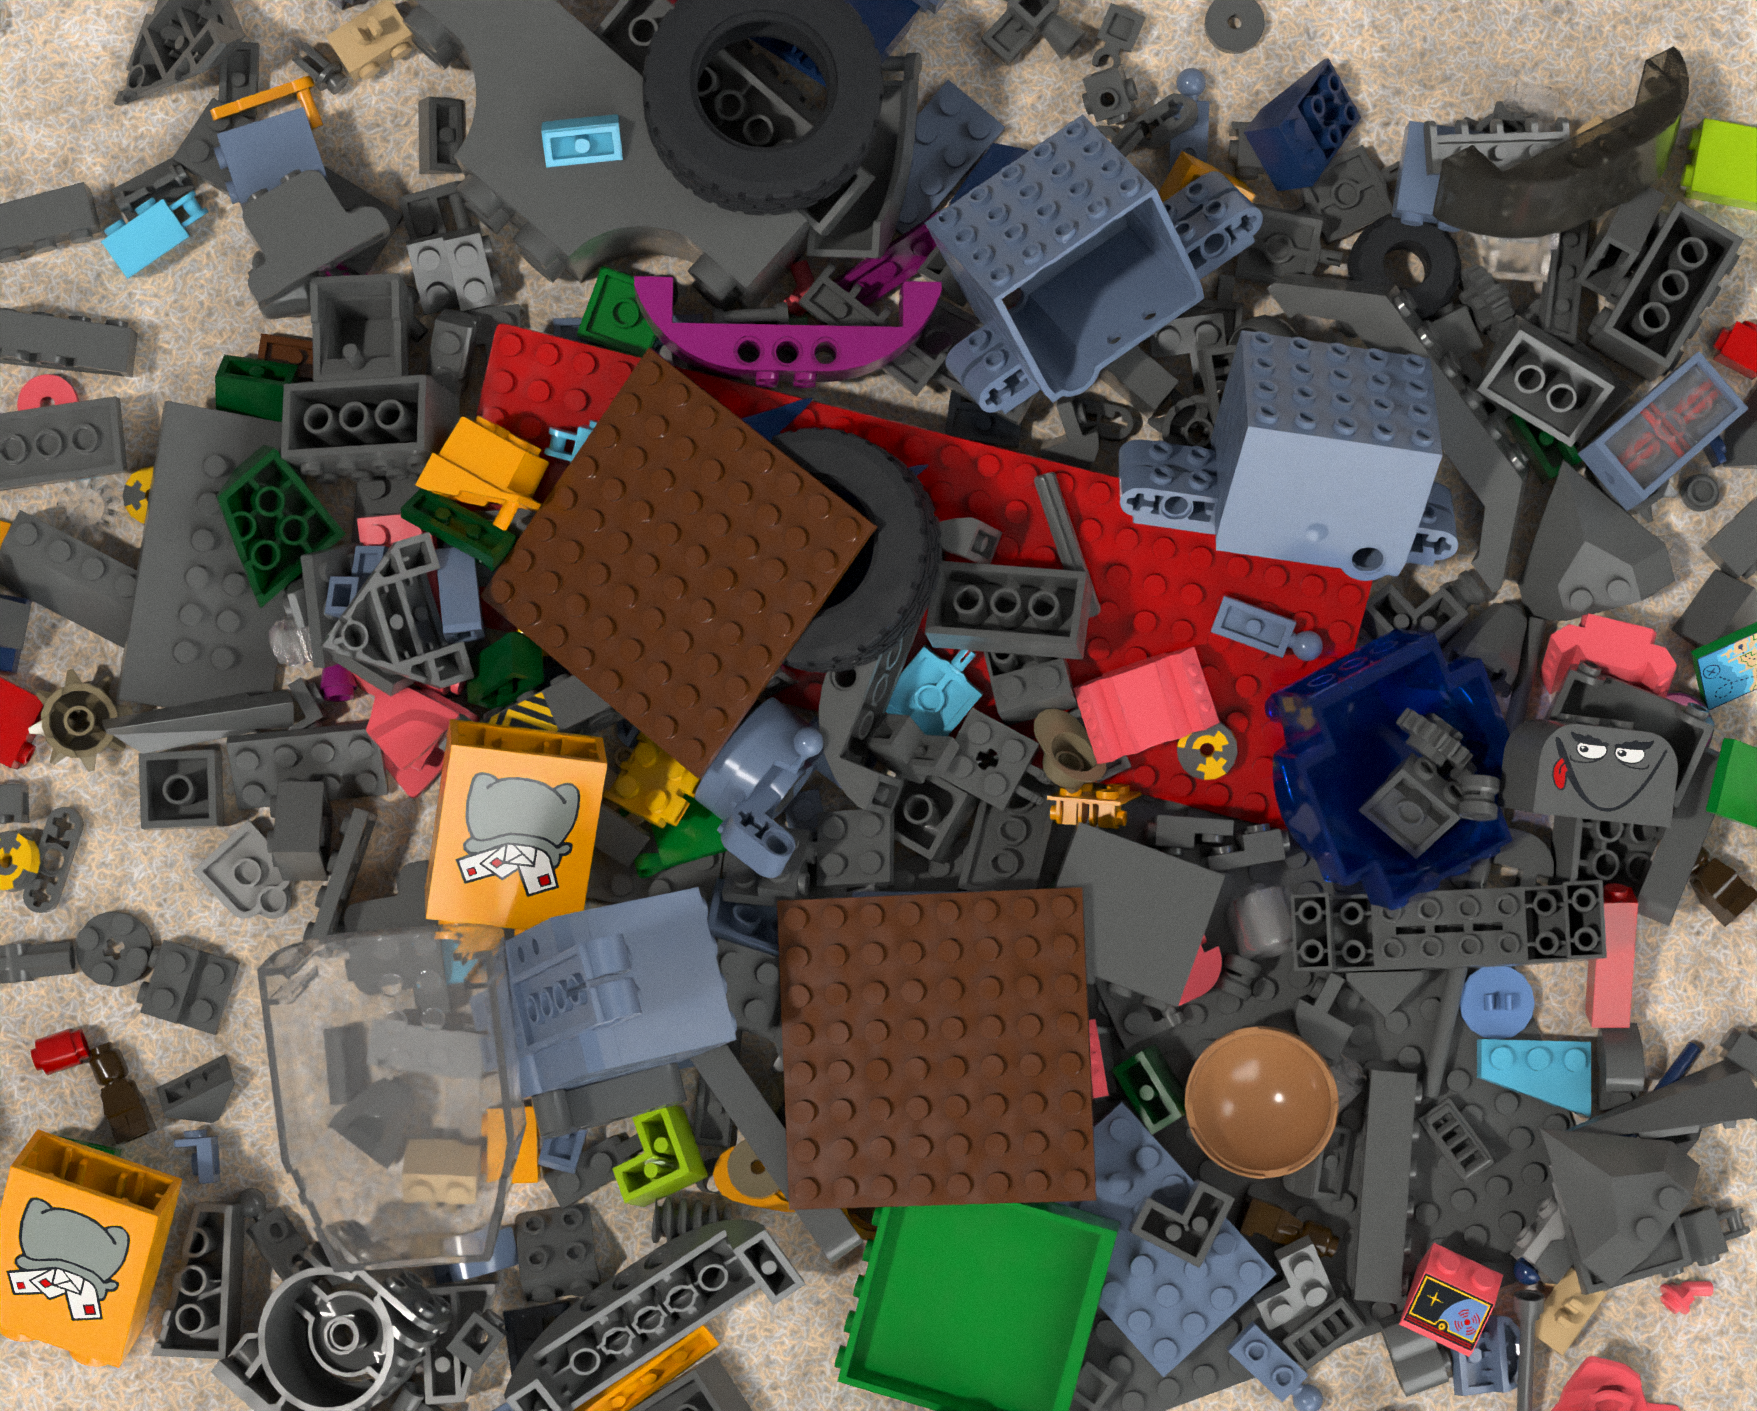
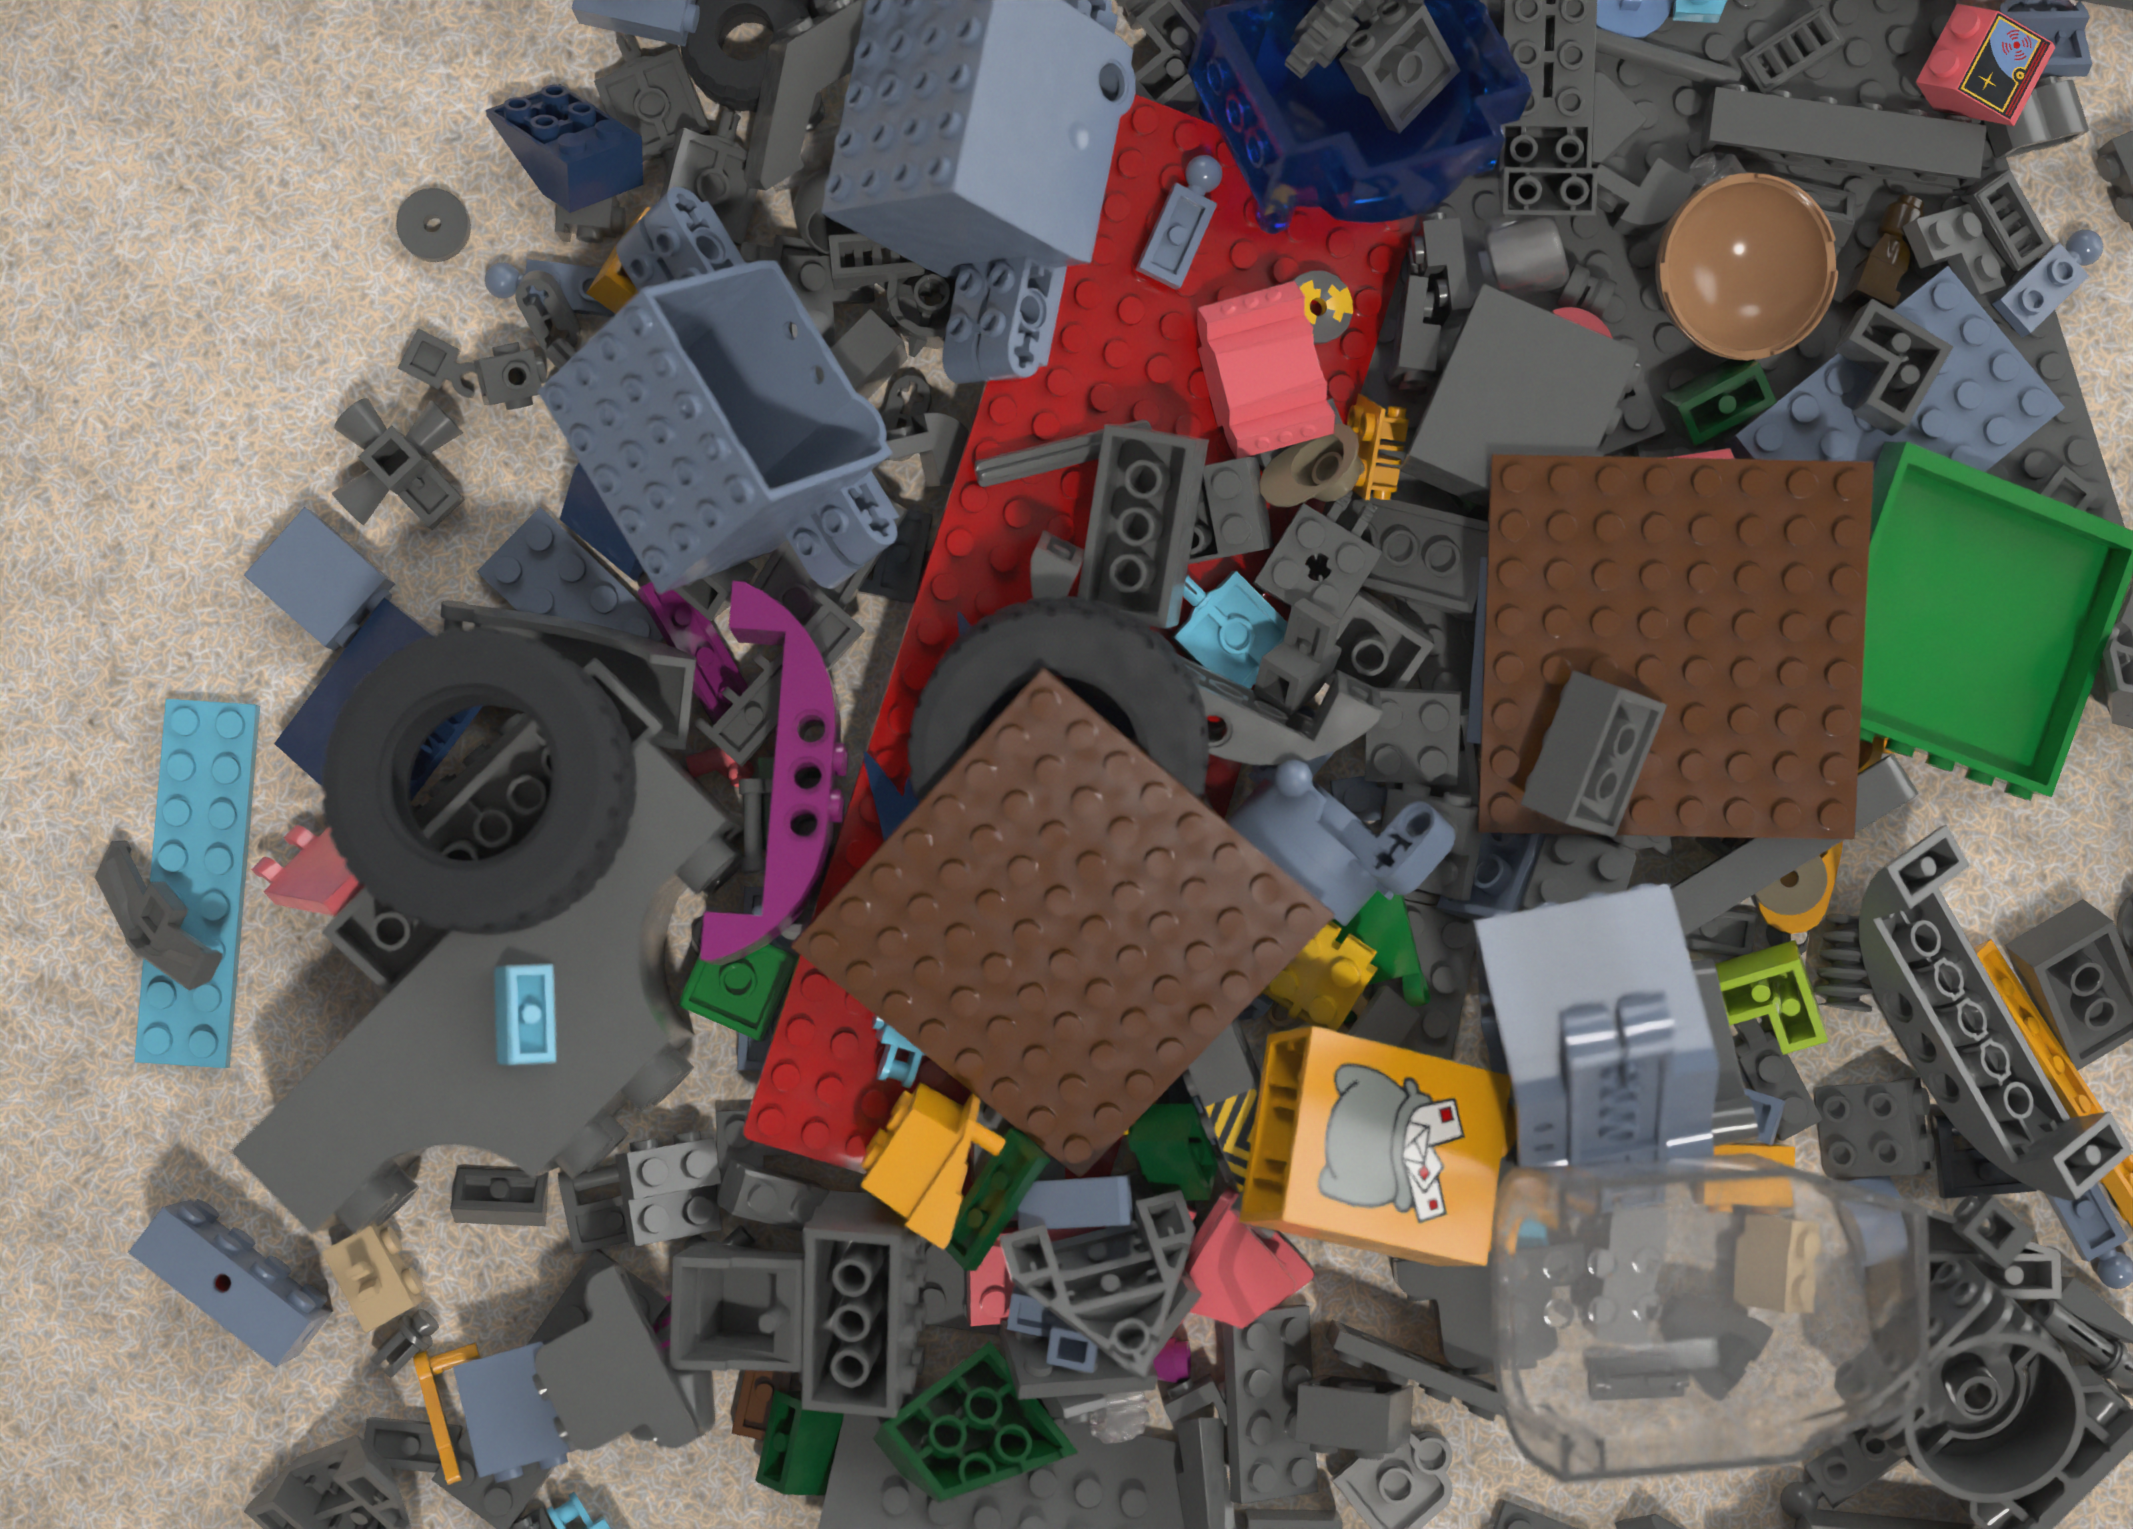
camera: 85 degrees left, 0 degrees up
(842, 985) = (1593, 754): none -> dark grey slope

